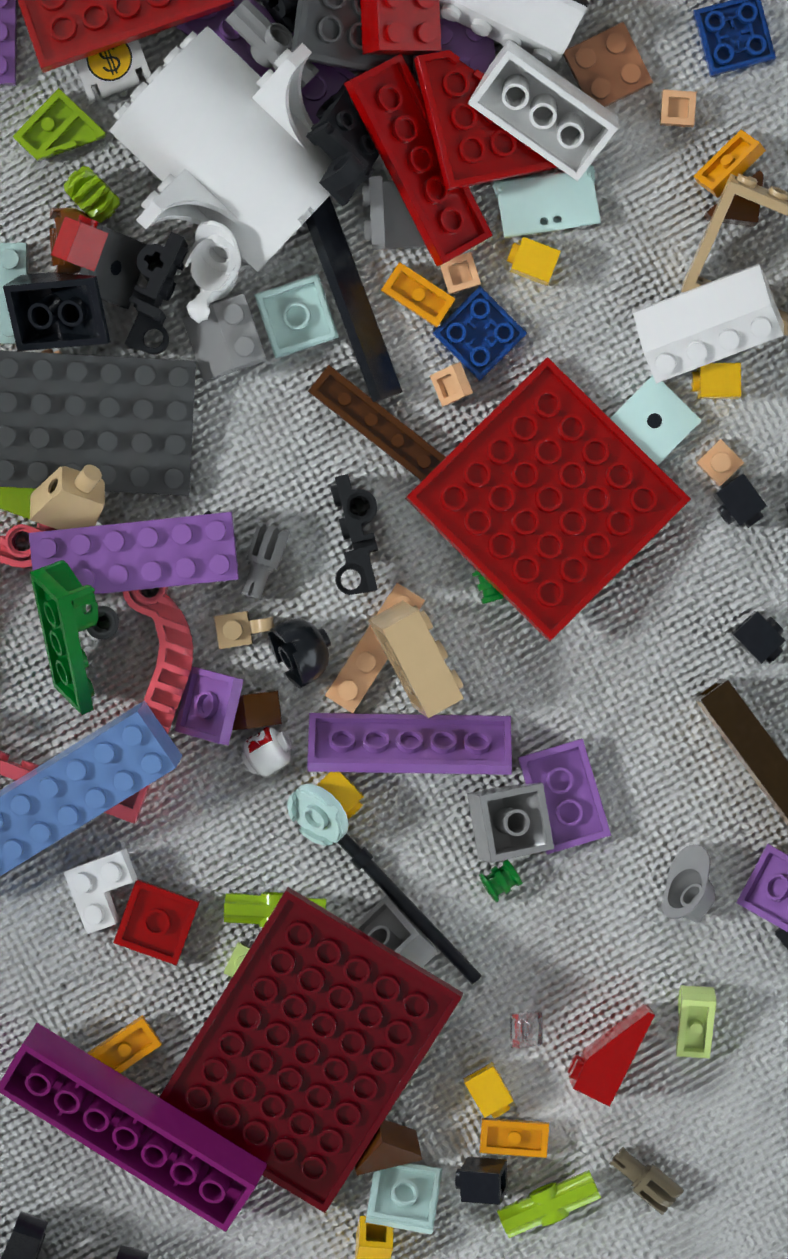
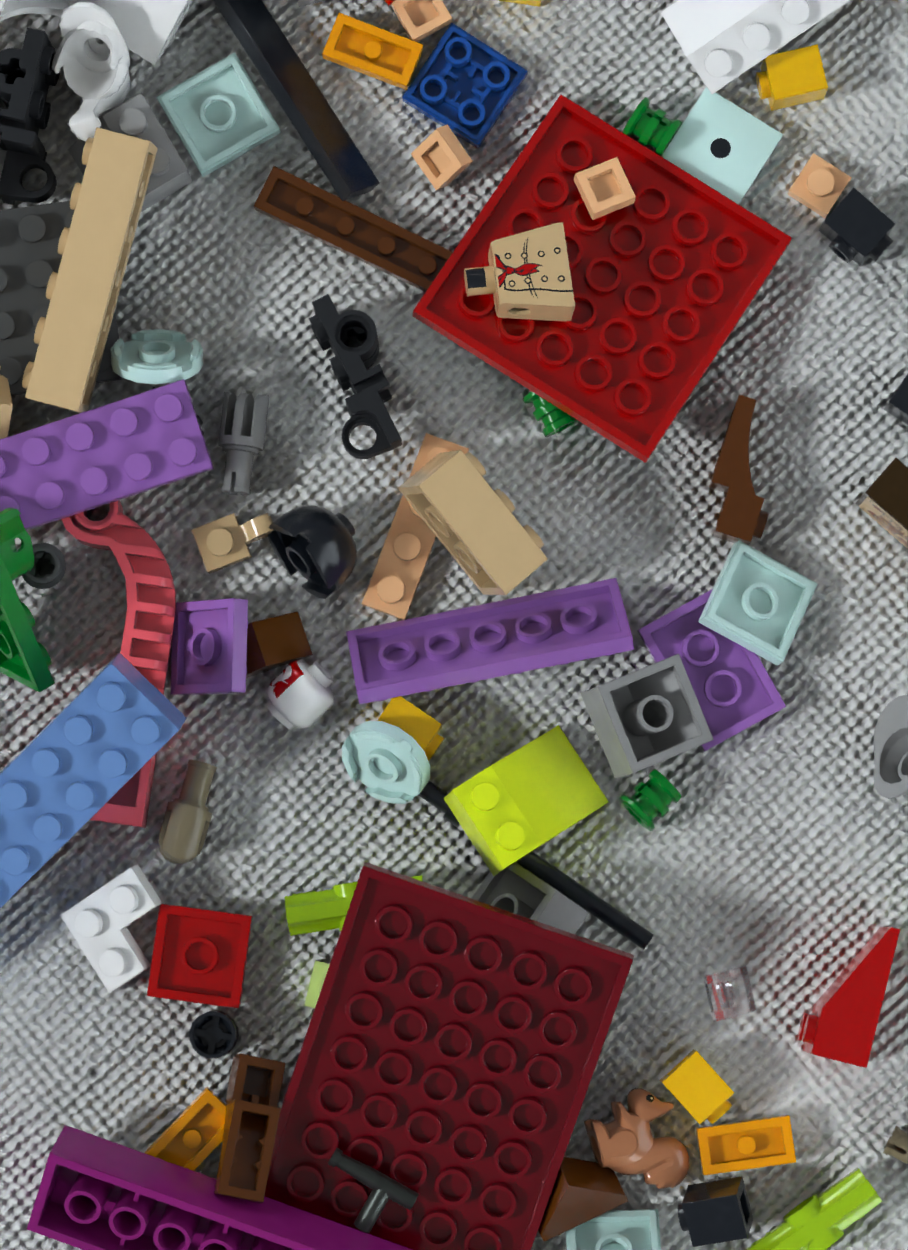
camera: 10 degrees left, 5 degrees down
(152, 985) = (207, 1034): none -> black wheel
(166, 1052) = (249, 1127): none -> reddish brown slope
(168, 822) = (187, 818): none -> dark tan arm
(179, 419) = (90, 270): none -> tan brick
(215, 488) = (156, 357): none -> light aqua tile
(250, 1111) = (382, 1185): none -> pearl dark grey piece
(411, 862) = (525, 800): none -> neon yellow slope
(432, 1121) = (629, 1146): none -> nougat animal
(493, 490) = (527, 276): none -> tan torso
(563, 436) = (604, 188): none -> light nougat plate
(607, 757) = (758, 602): none -> light aqua tile
(608, 395) = (652, 127): none -> green bush
(610, 689) = (741, 509): none -> reddish brown slope

